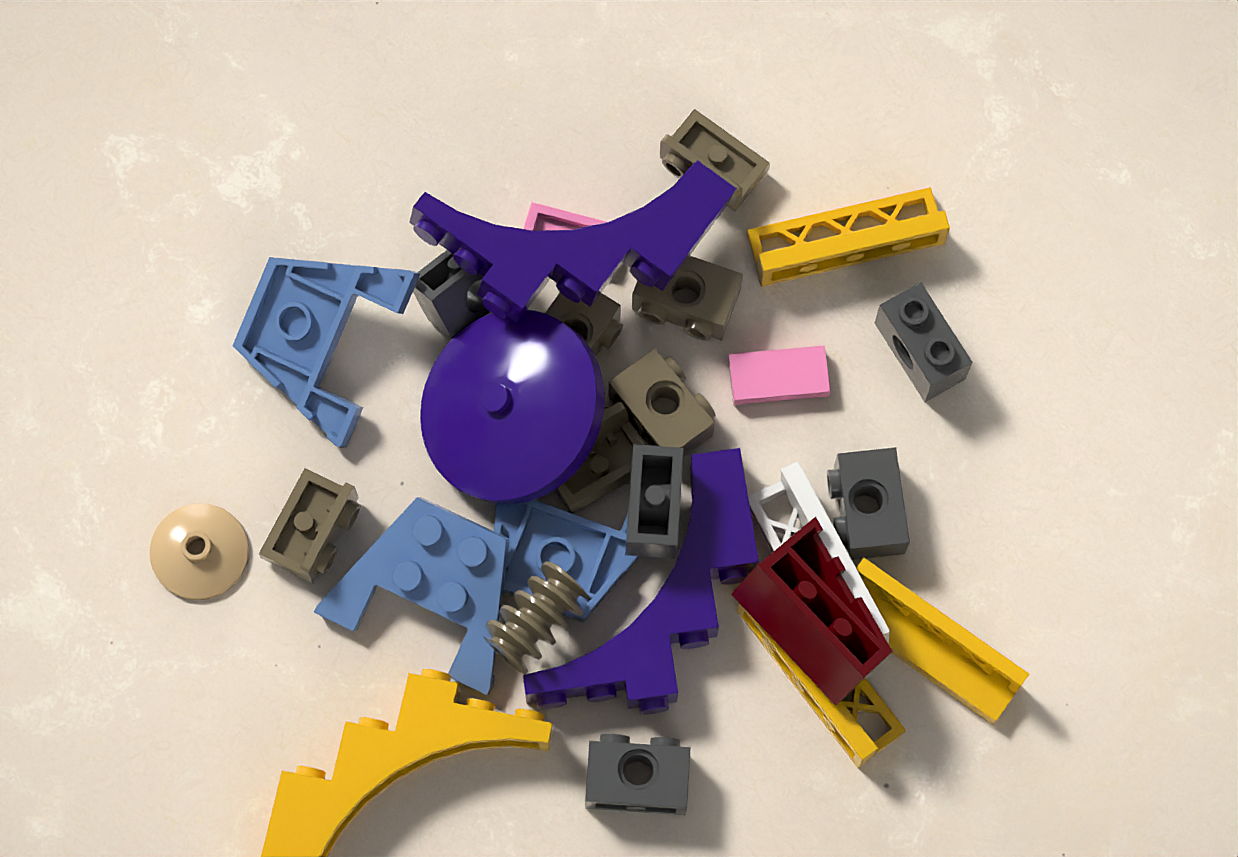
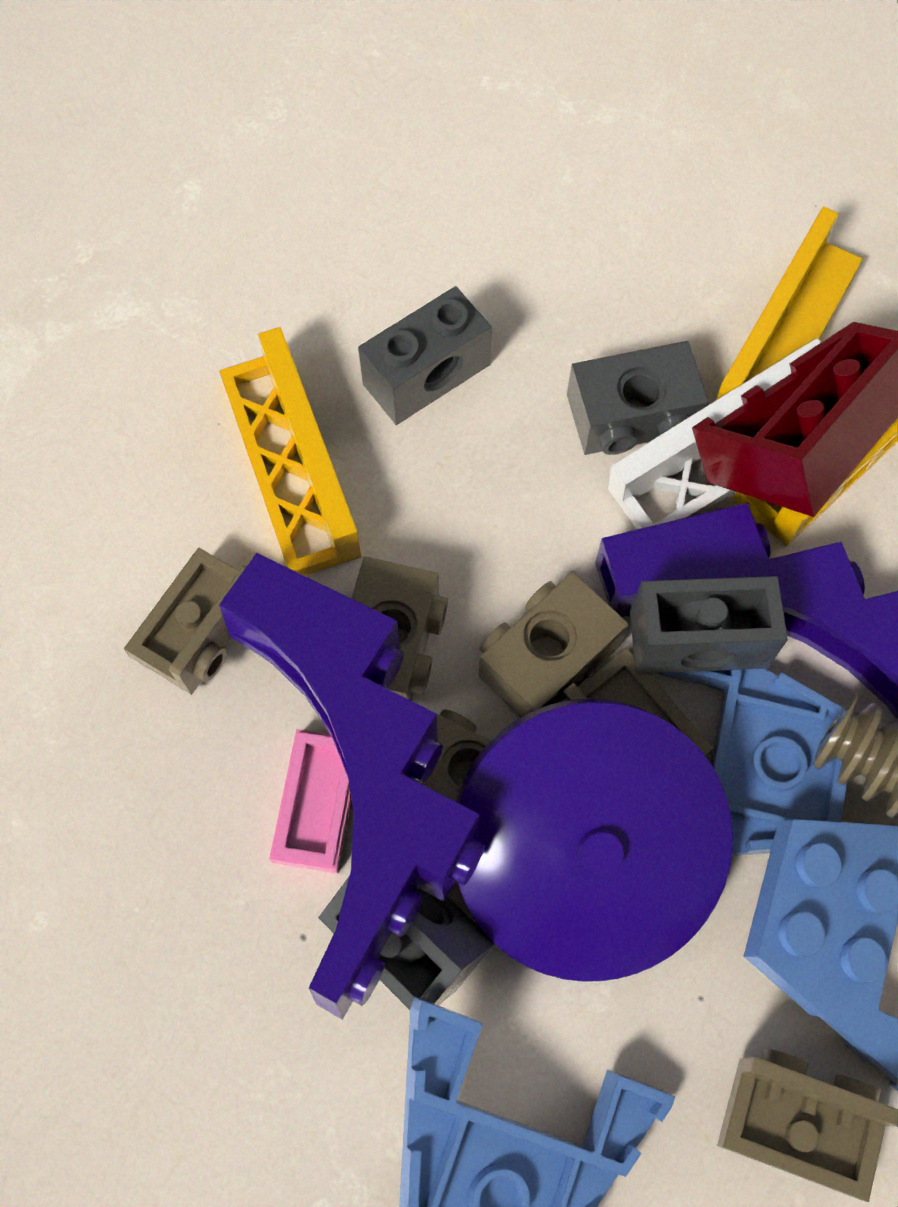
camera: 95 degrees left, 5 degrees down
(779, 375) = (481, 521): bright pink tile -> none

